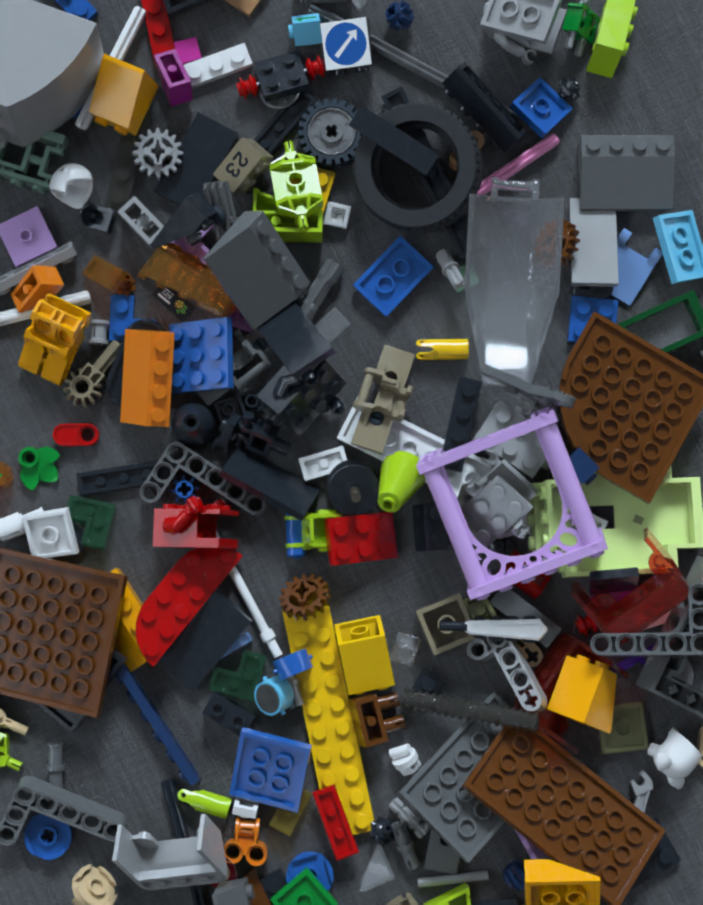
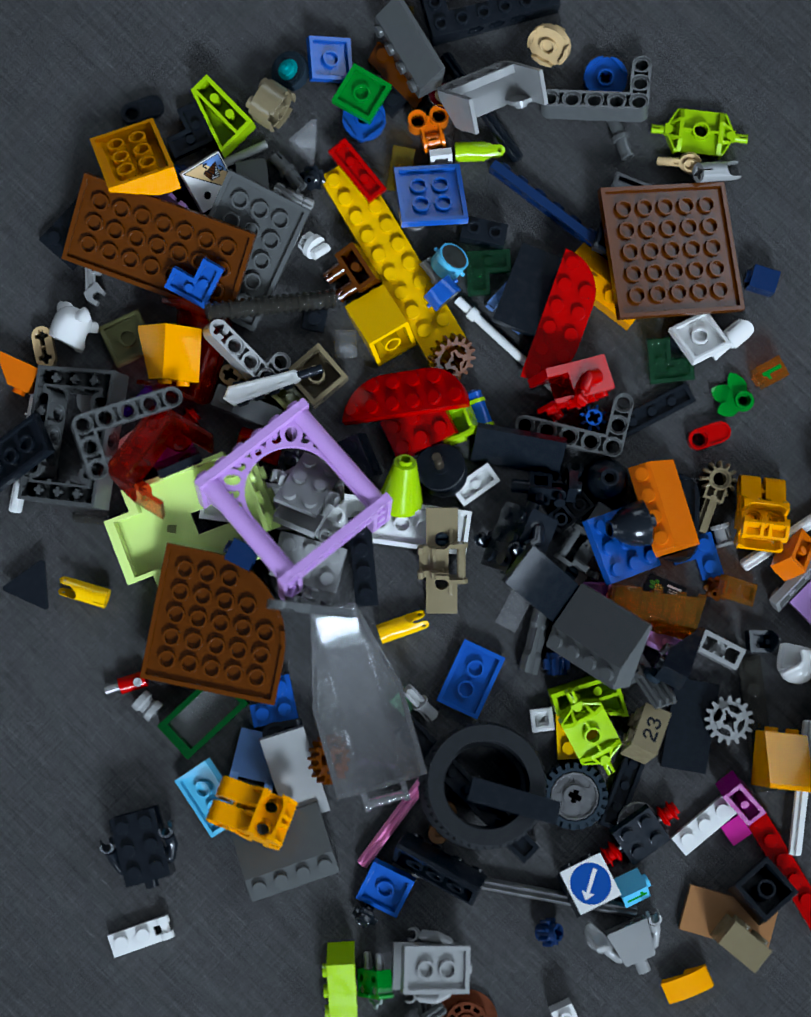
camera: 160 degrees right, 0 degrees up
(186, 366) = (632, 525): none -> black piece
(307, 261) = (555, 664): none -> dark blue gear
(364, 573) = (405, 395): none -> red plate
(493, 863) = (205, 180): none -> tile
(541, 751) = (196, 288): none -> blue plate
(643, 227) = (245, 821): none -> light orange connector

